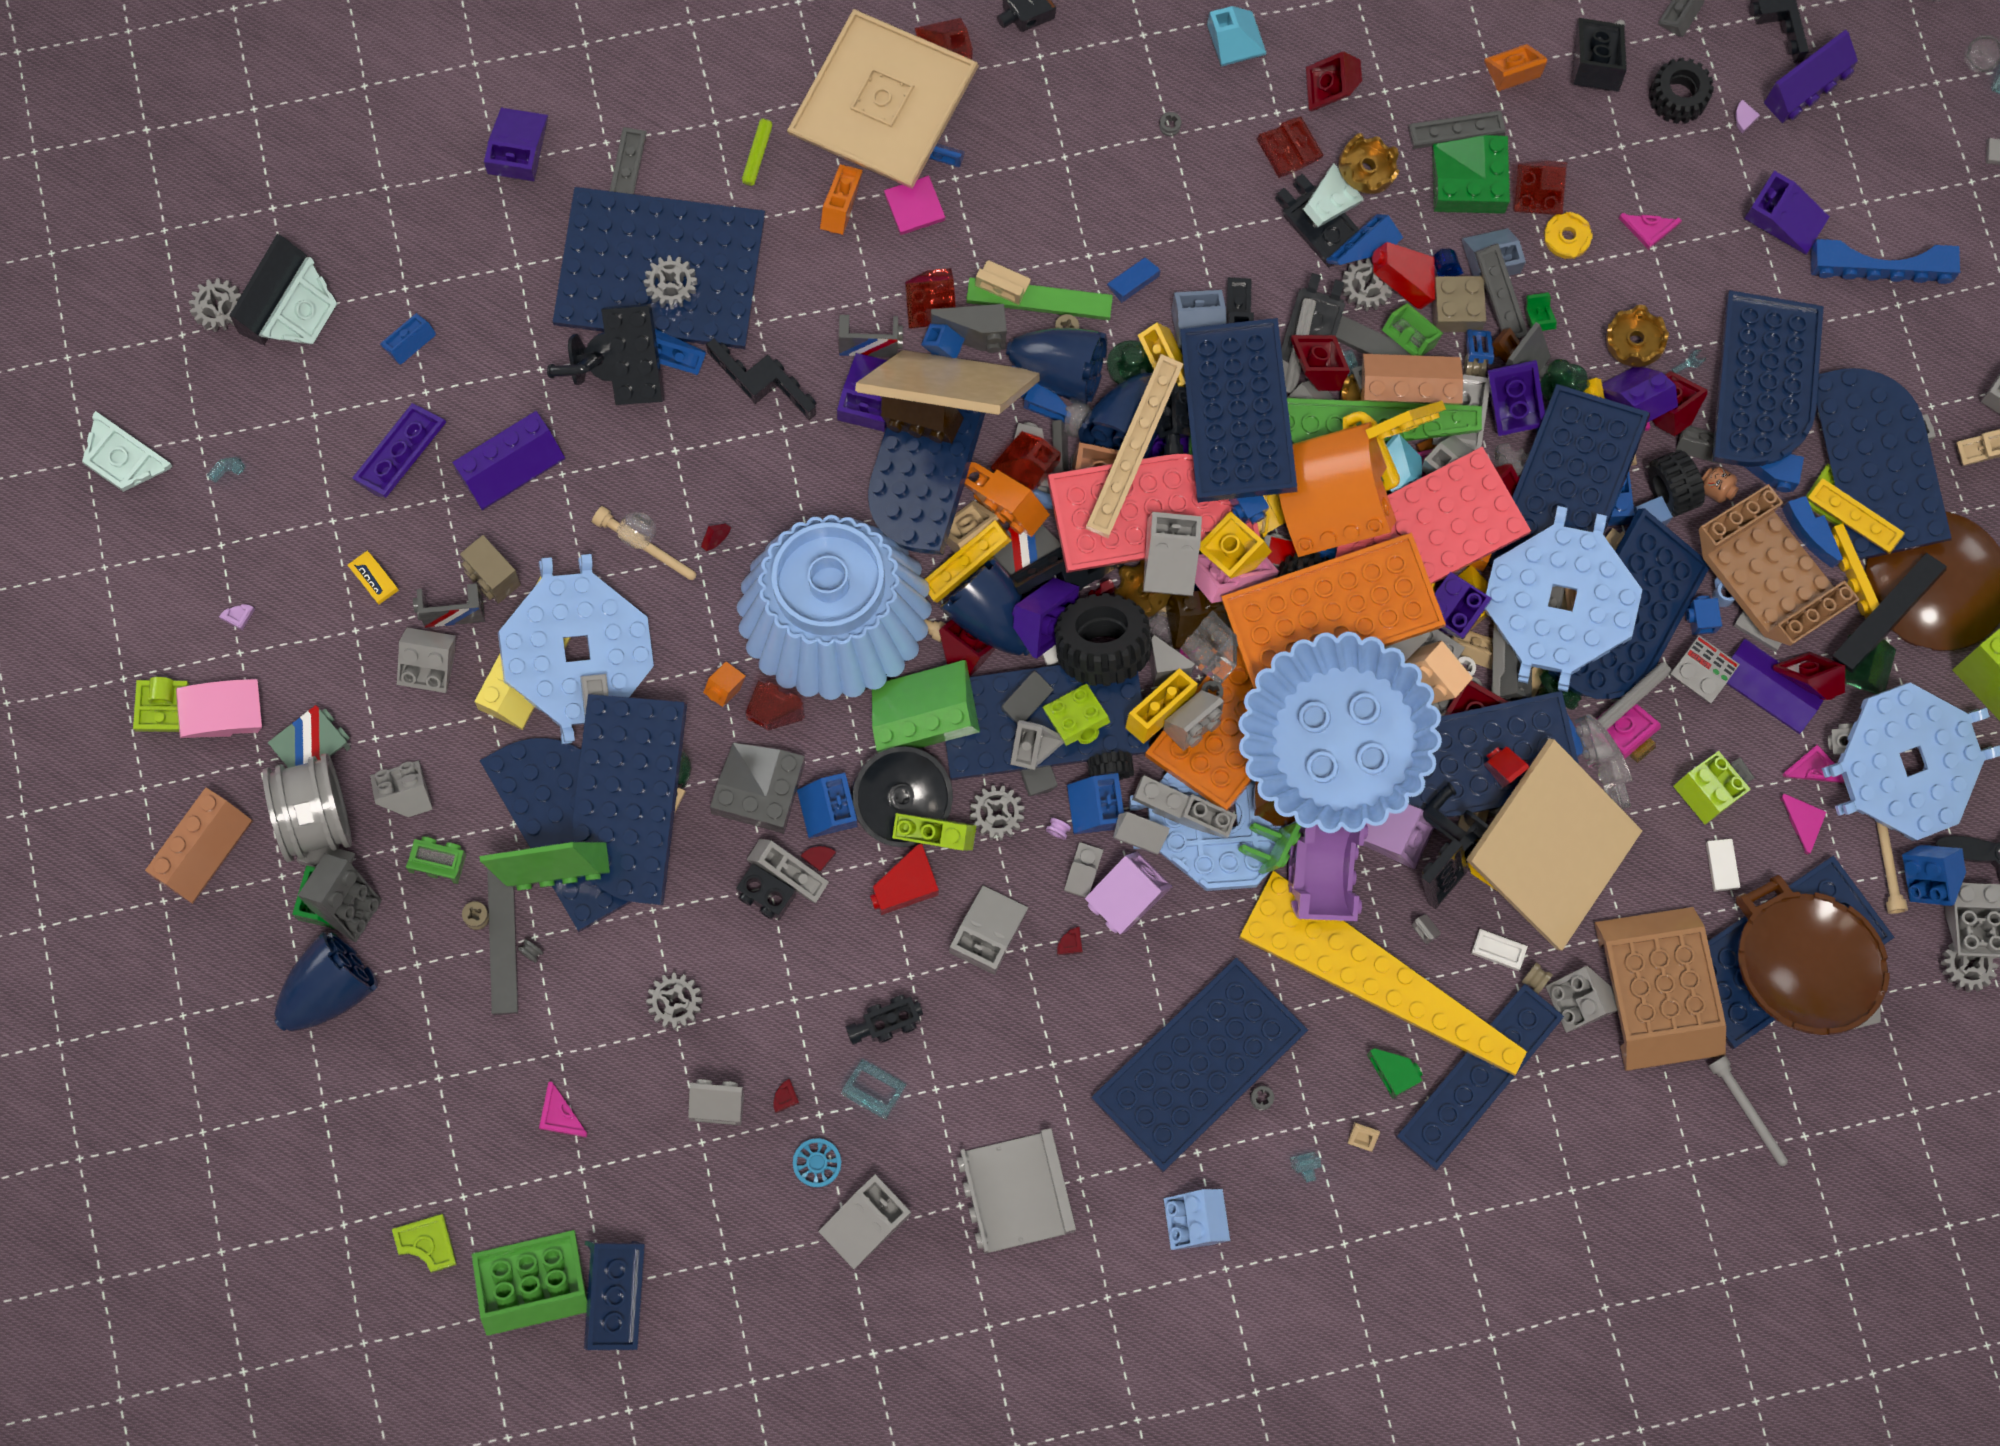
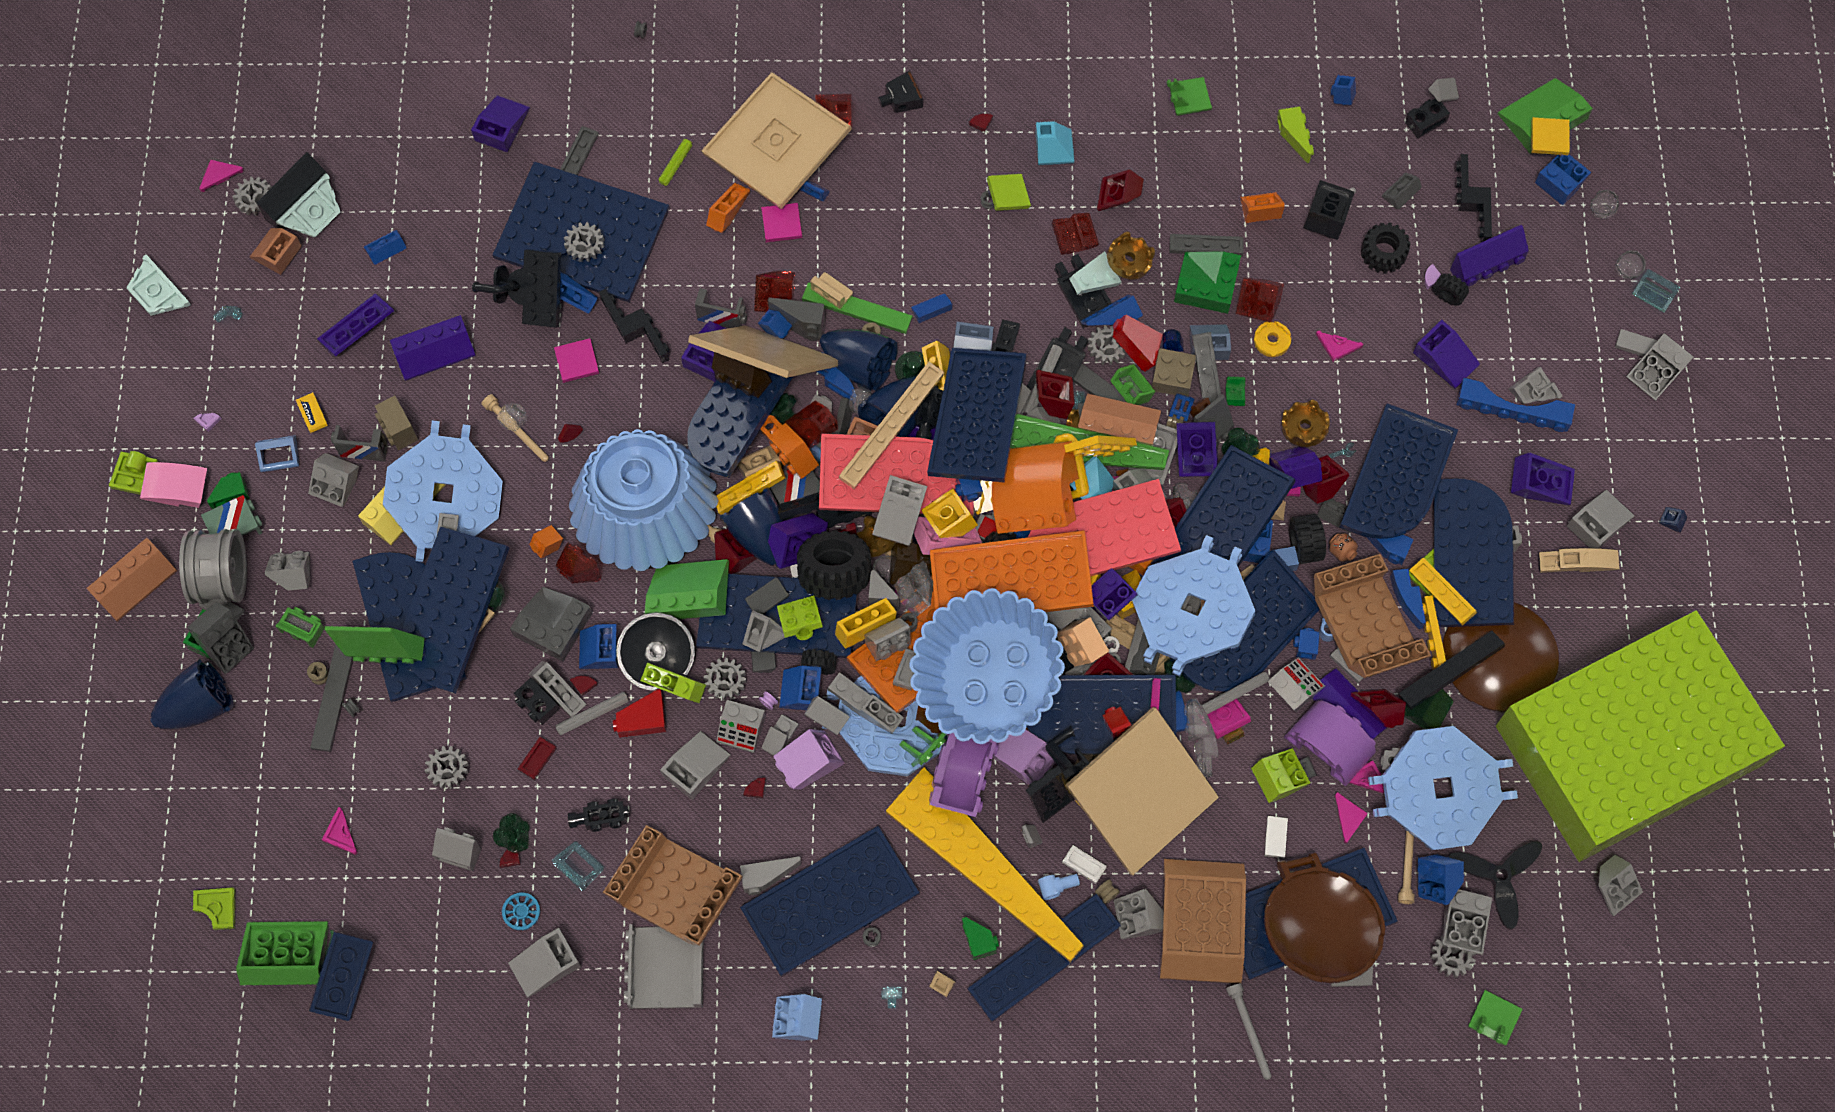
camera: 20 degrees right, 5 degrees down
(159, 283) = (217, 173): none -> dark pink tile
(267, 370) = (276, 249): none -> nougat slope
(293, 702) = (227, 489): none -> green slope
(337, 627) = (273, 443): none -> medium blue tile
(698, 439) = (576, 360): none -> dark pink tile
(781, 1068) = (512, 833): none -> clear green plate
(785, 964) = (537, 758): none -> dark red tile
(839, 892) = (592, 713): none -> light grey axle
(985, 449) = (783, 408): none -> clear green plate
(1004, 1091) = (671, 886): none -> medium nougat slope
(1032, 868) = (740, 726): none -> light grey slope
(1107, 1051) = (762, 875): none -> light grey slope
(1135, 23) = (981, 121): none -> dark red tile
(1194, 109) = (1008, 192): none -> lime tile
(1227, 753) = (904, 673): none -> light grey tile
(1468, 986) = (1053, 886): none -> light blue pin
(1546, 727) = (1155, 693): none -> dark pink tile
(1765, 727) = (1334, 739): none -> medium lavender cylinder
(1774, 129) = (1451, 289): none -> black tyre
(1902, 234) = (1535, 388): none -> light grey slope
(1939, 349) = (1542, 479): none -> dark purple slope

